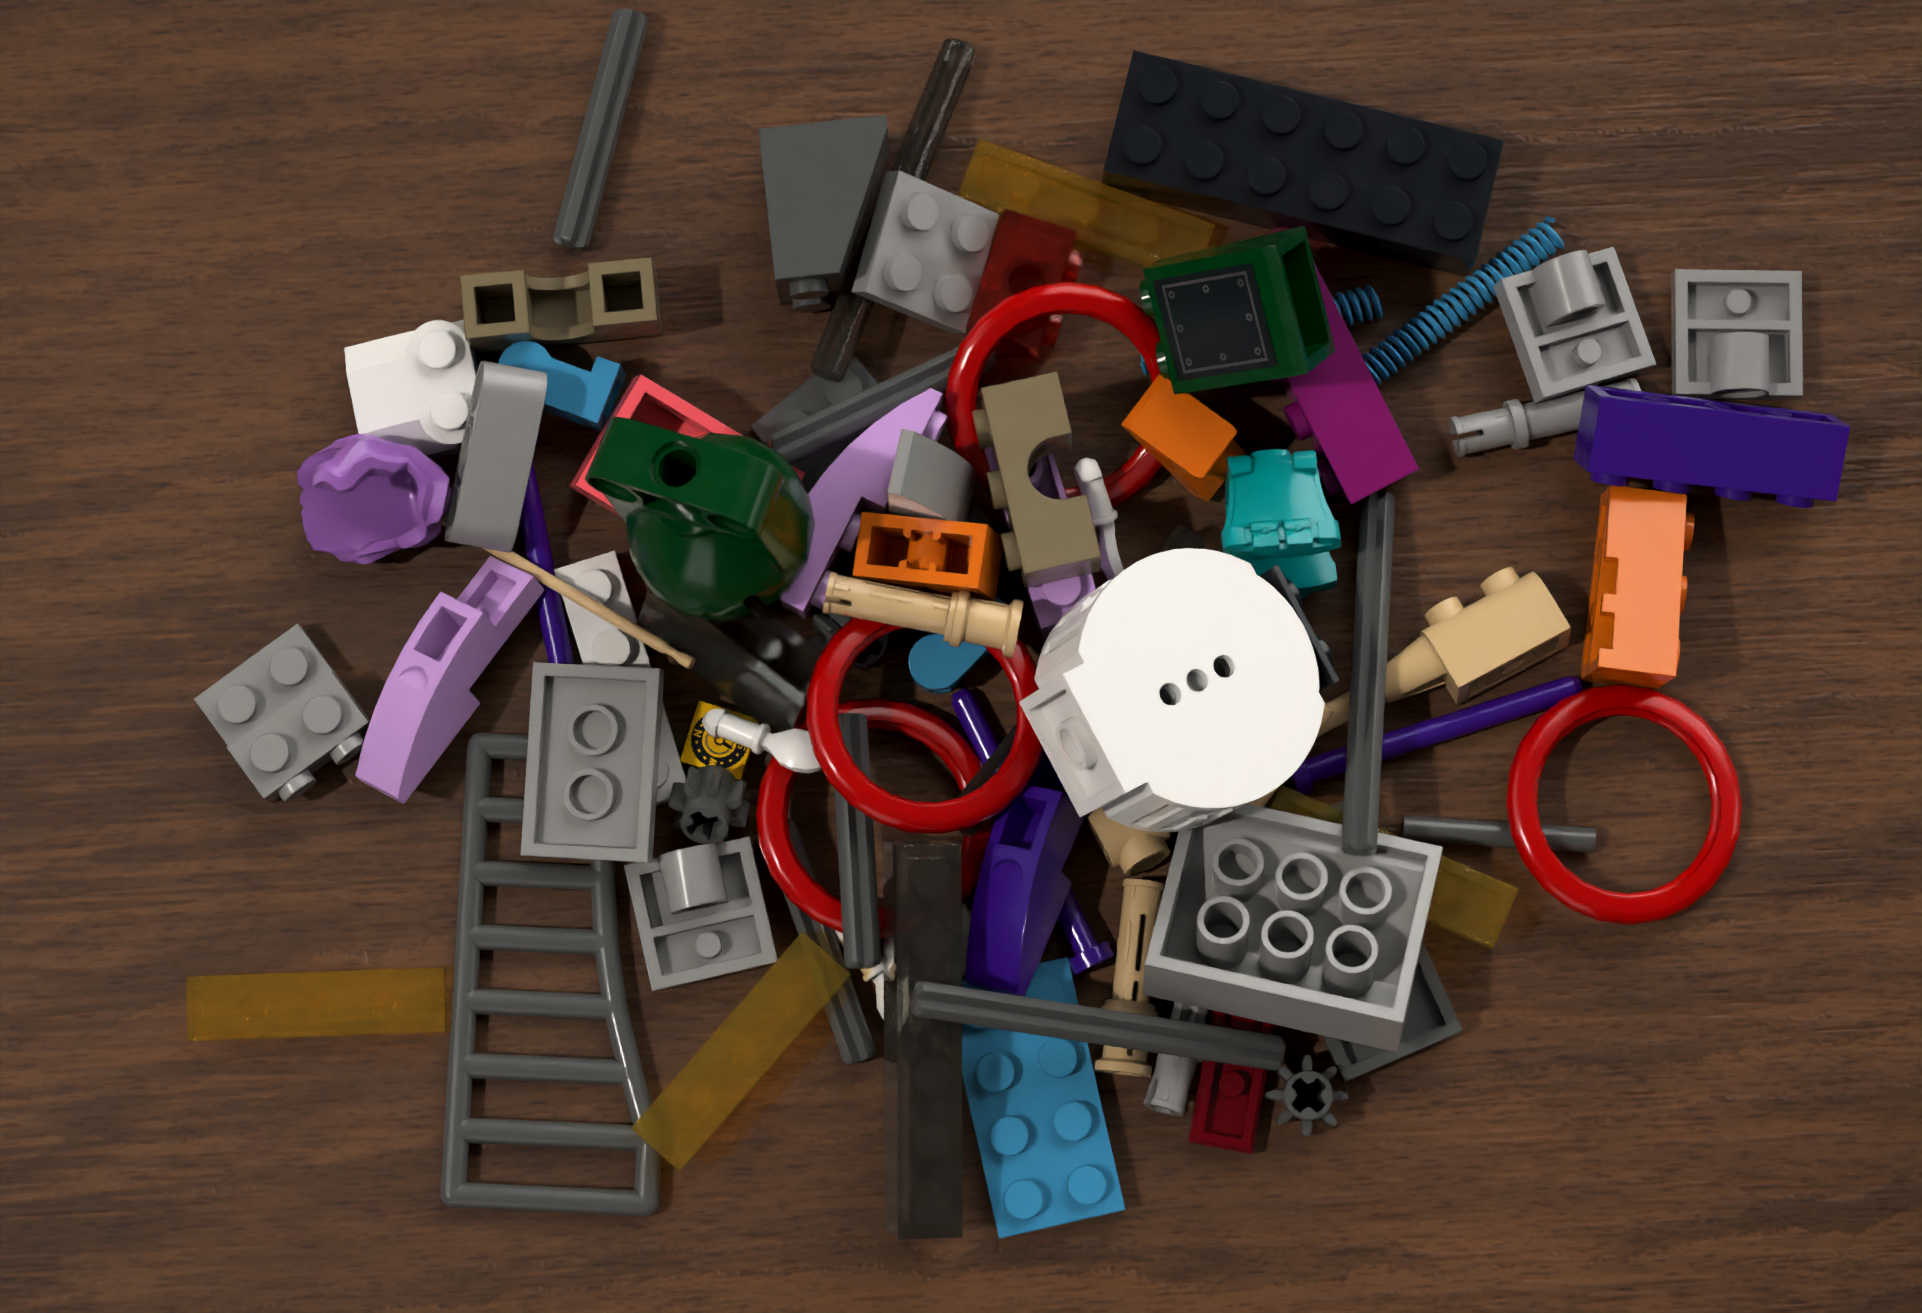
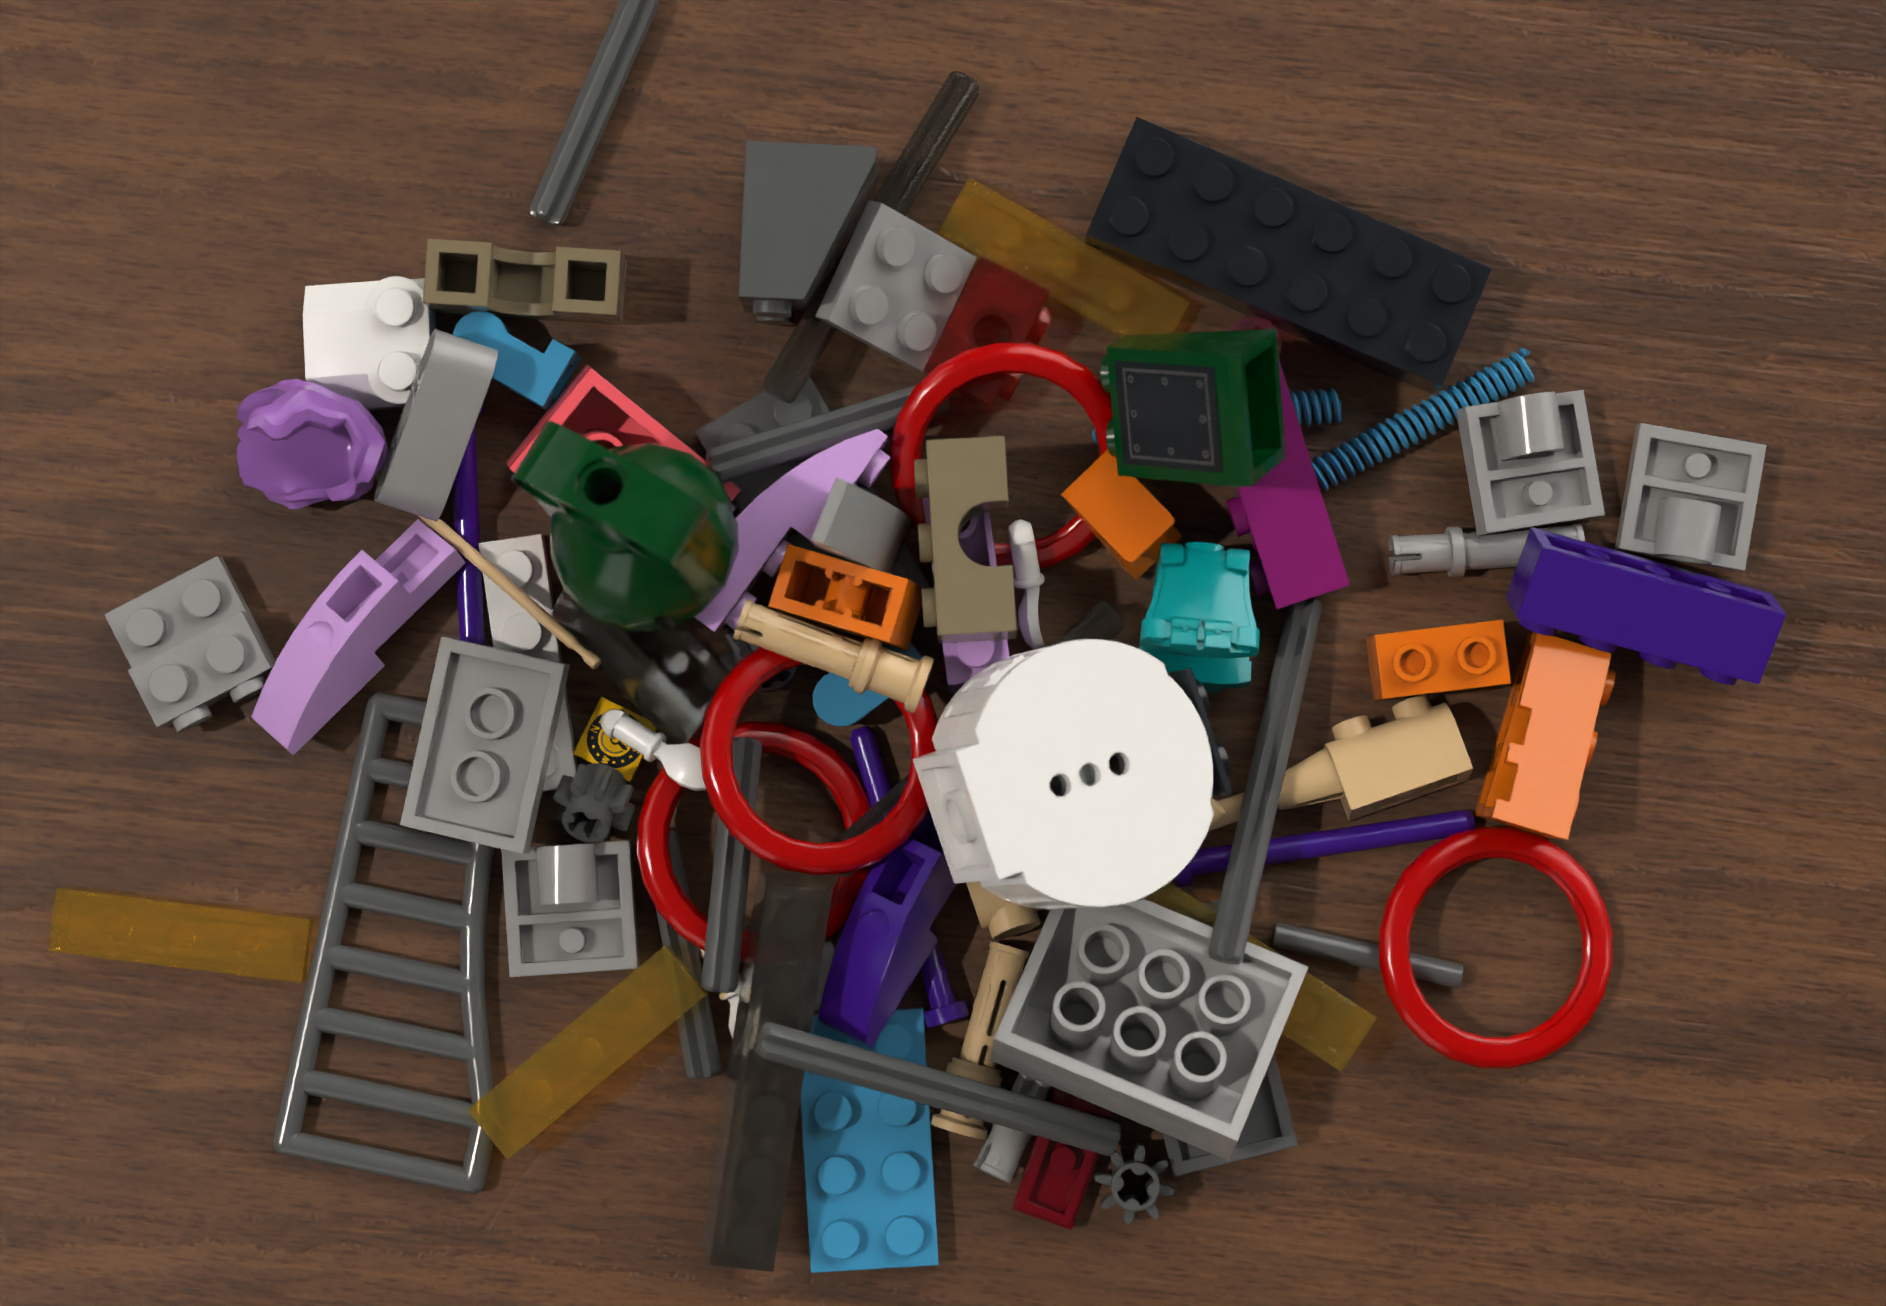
camera: 10 degrees right, 5 degrees up
(1518, 530) = (1438, 660): none -> orange brick

